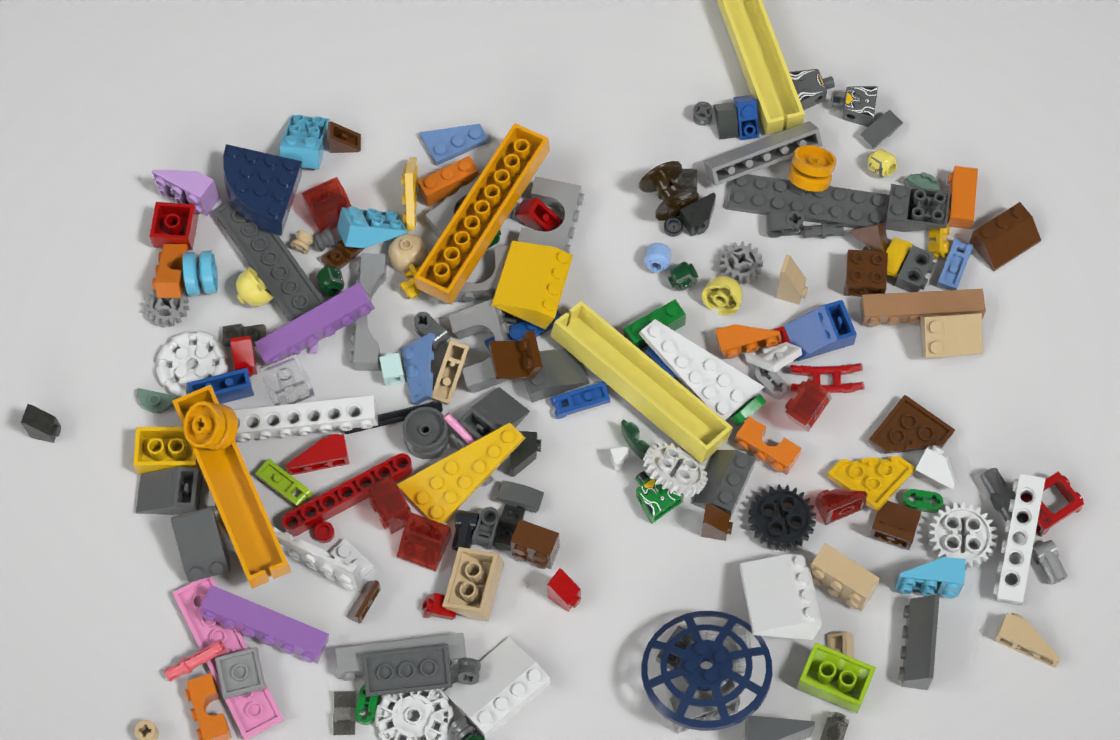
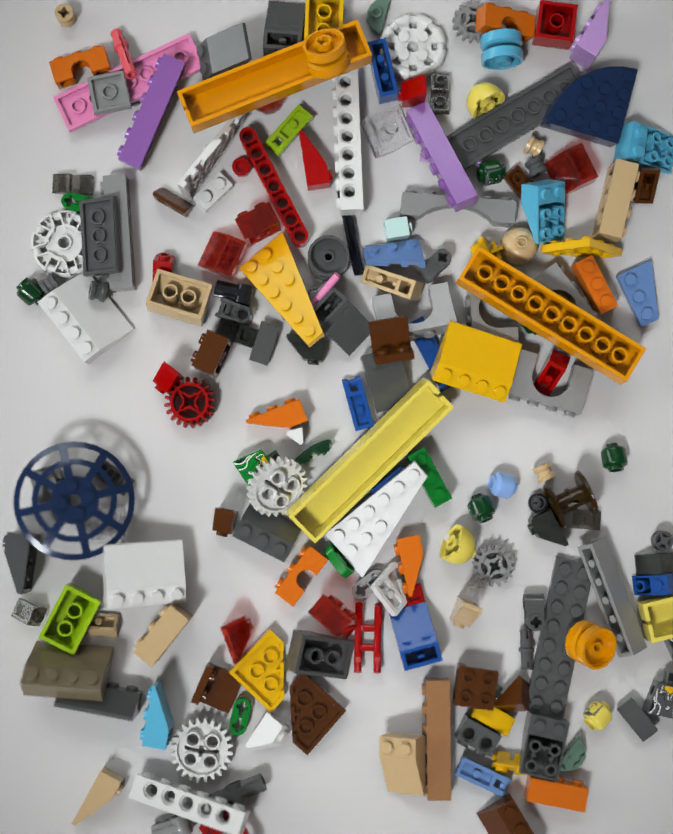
camera: 90 degrees right, 20 degrees up
(362, 163) = (615, 201): none -> tan brick
(598, 469) = (285, 416): none -> orange slope
(598, 556) = (183, 408): none -> red gear
(623, 157) = (614, 457): none -> dark green head
(642, 220) = (544, 472): none -> tan wheel
(799, 512) = (234, 599): black gear -> none
(849, 424) = (319, 654): none -> dark grey slope
(899, 672) = (64, 675): none -> dark tan slope

